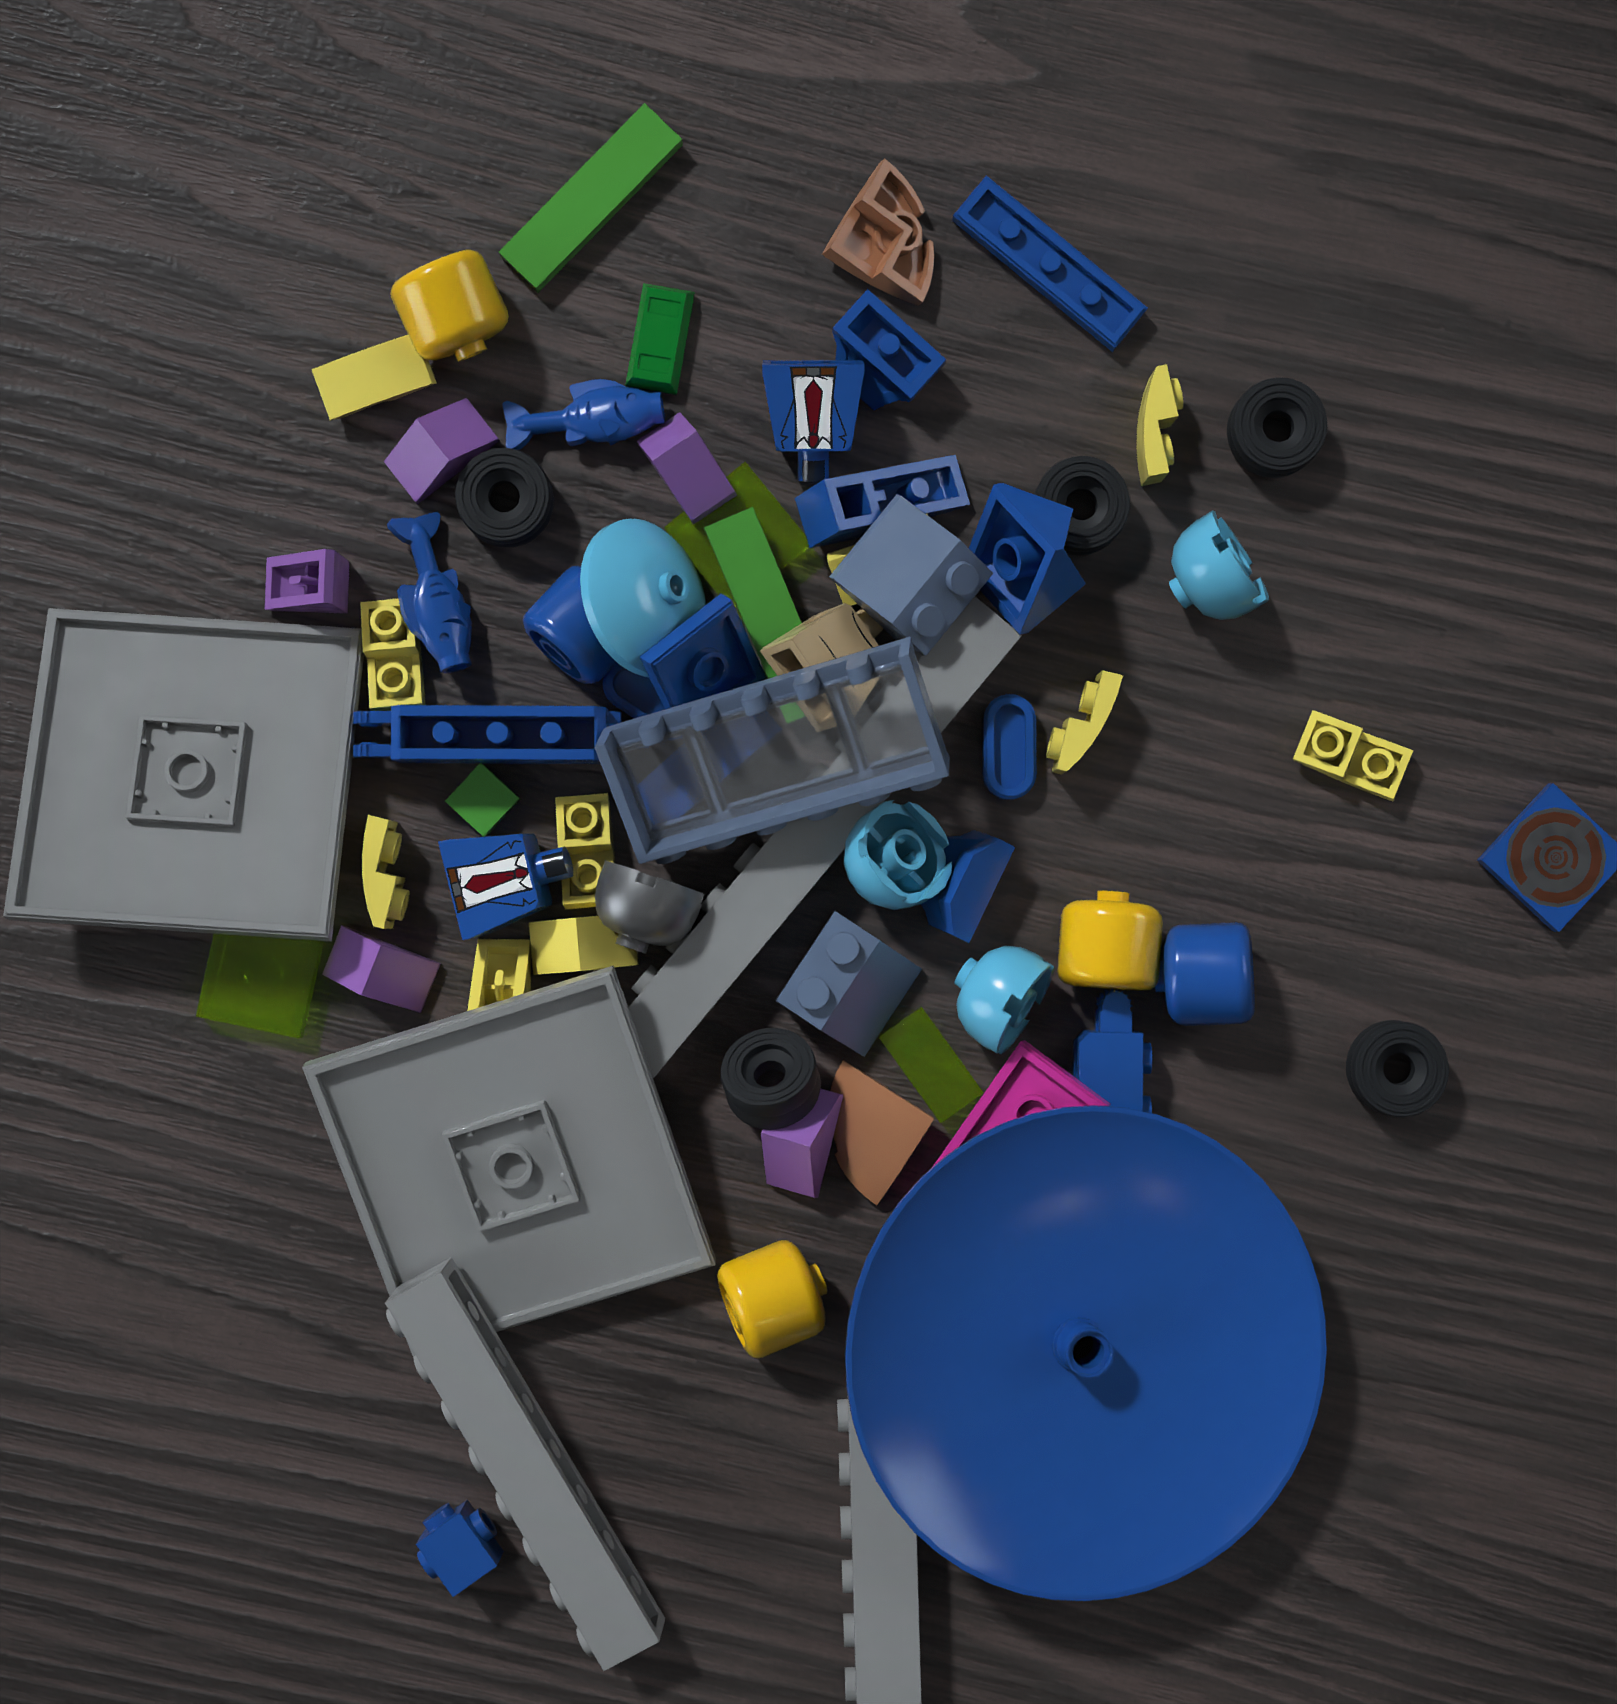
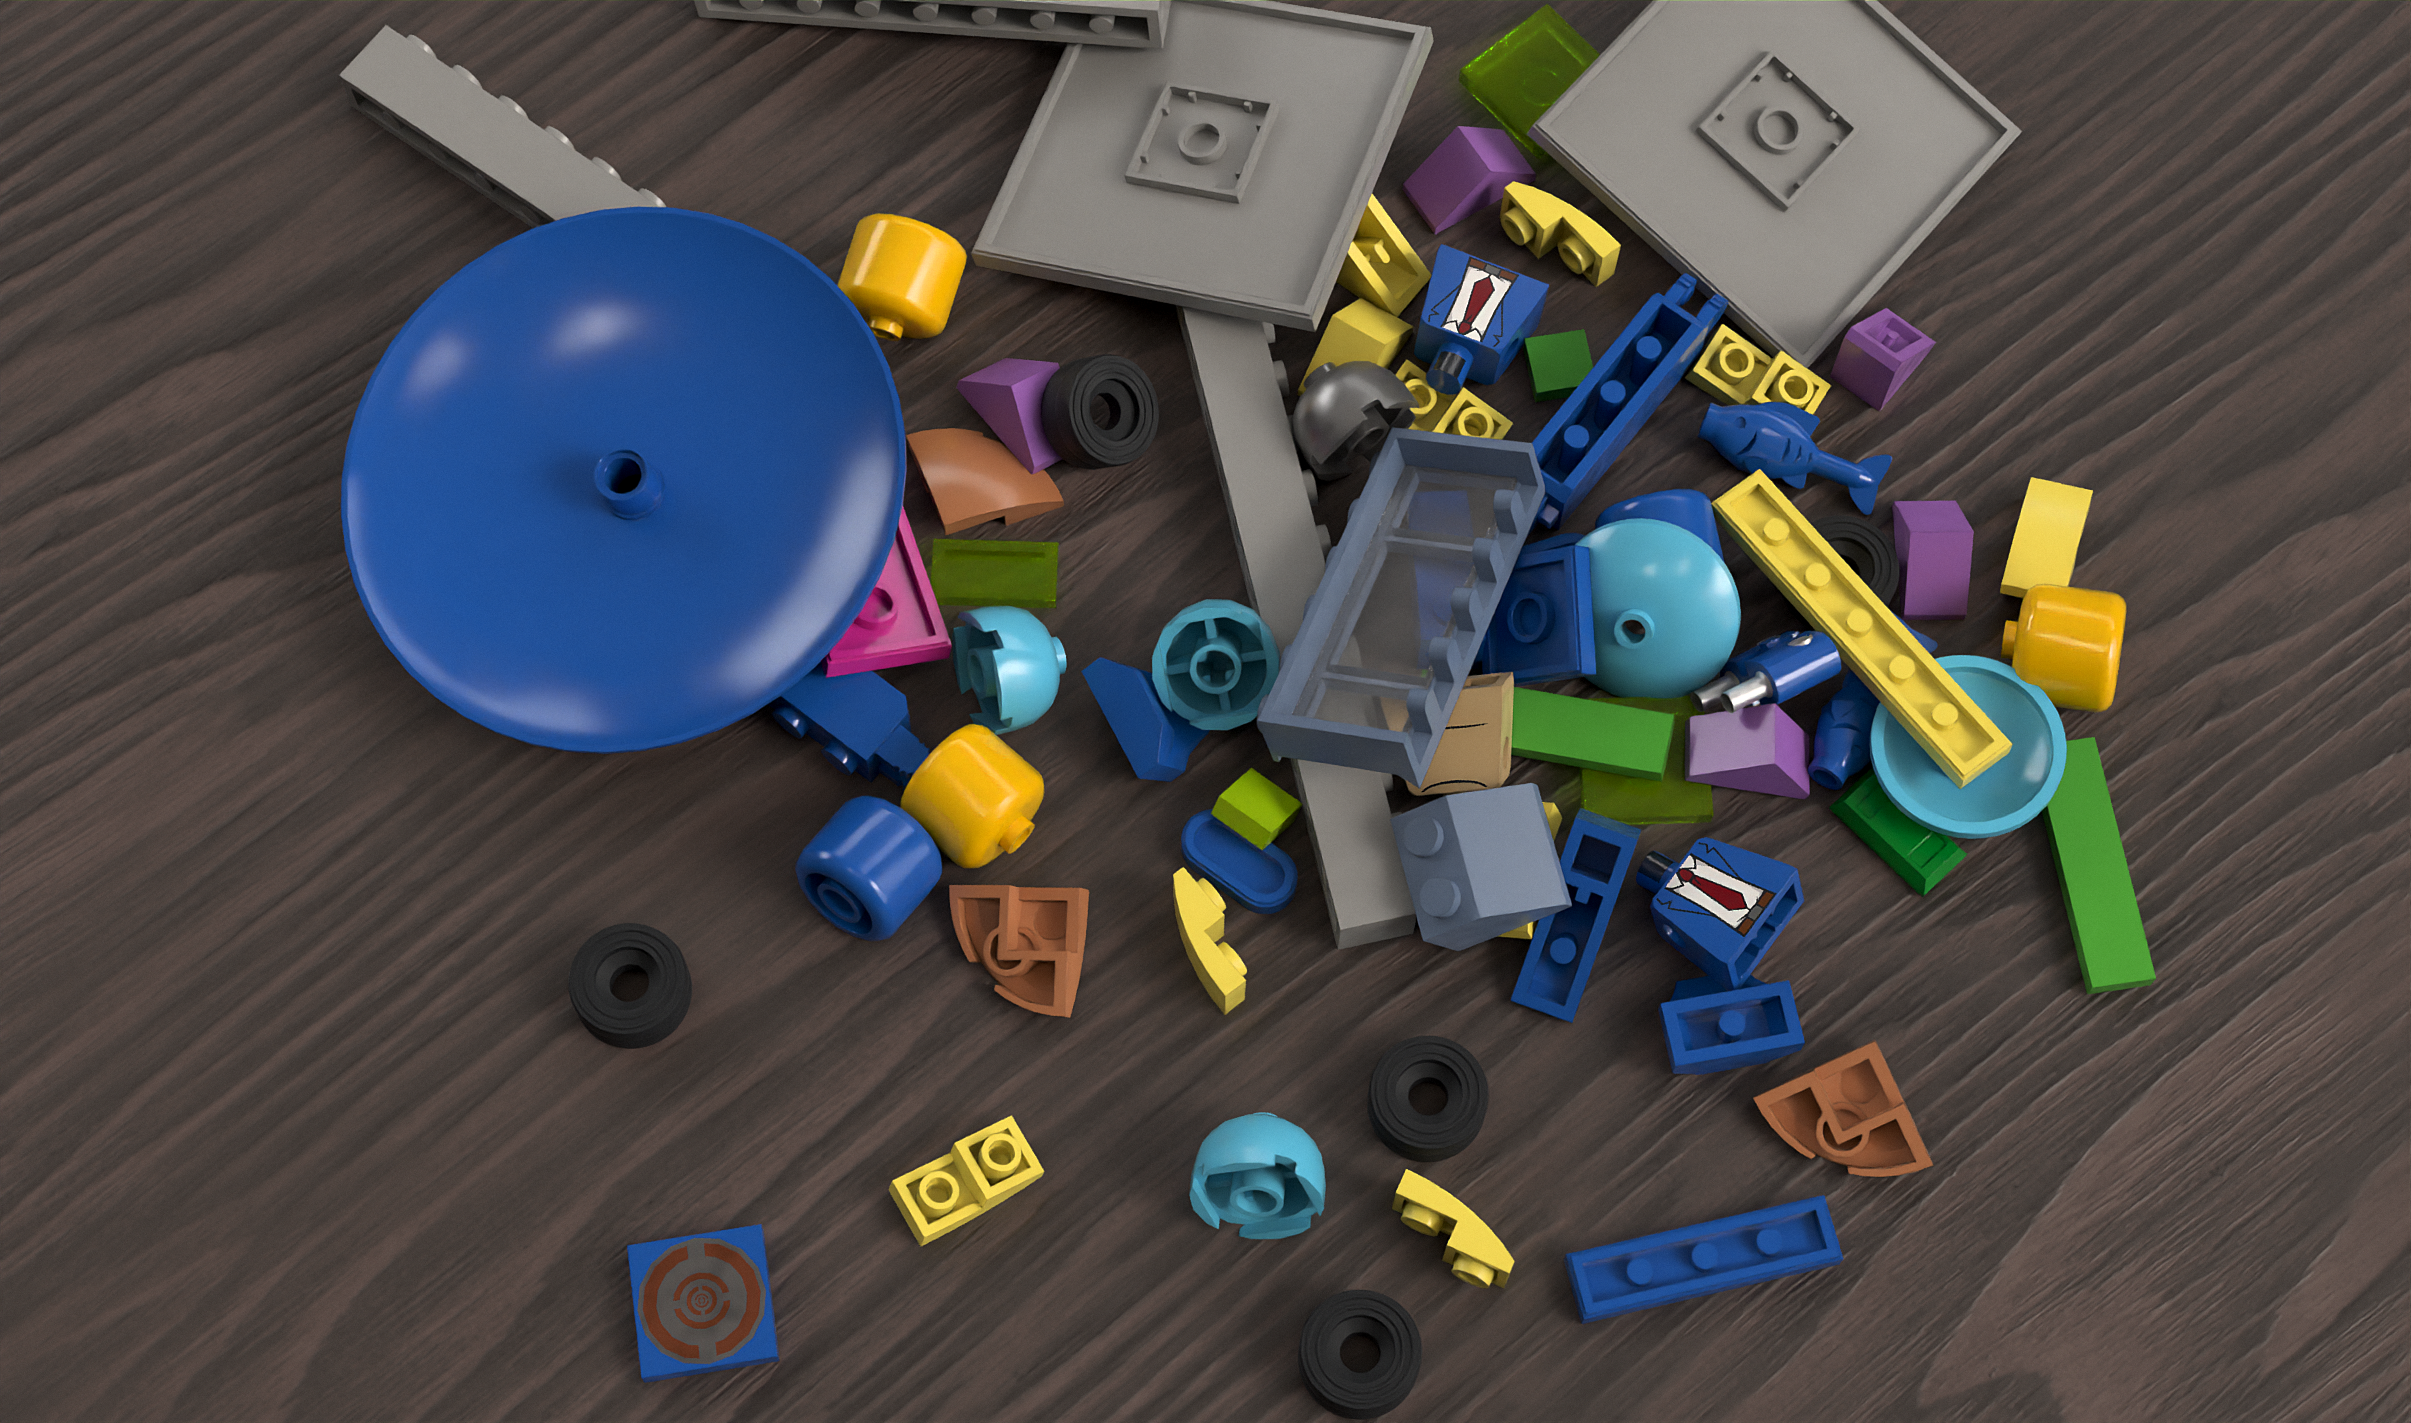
camera: 130 degrees right, 20 degrees down
(546, 448) = (1861, 628): none -> light yellow tile
(568, 286) = (2002, 795): none -> medium azure dish
(619, 485) = (1771, 671): none -> blue piece
(848, 984) = (1132, 547): sand blue slope -> none
(971, 759) = (1256, 808): none -> lime tile
(1023, 546) = (1415, 990): blue slope -> none
(1168, 840) = (1025, 940): none -> nougat brick

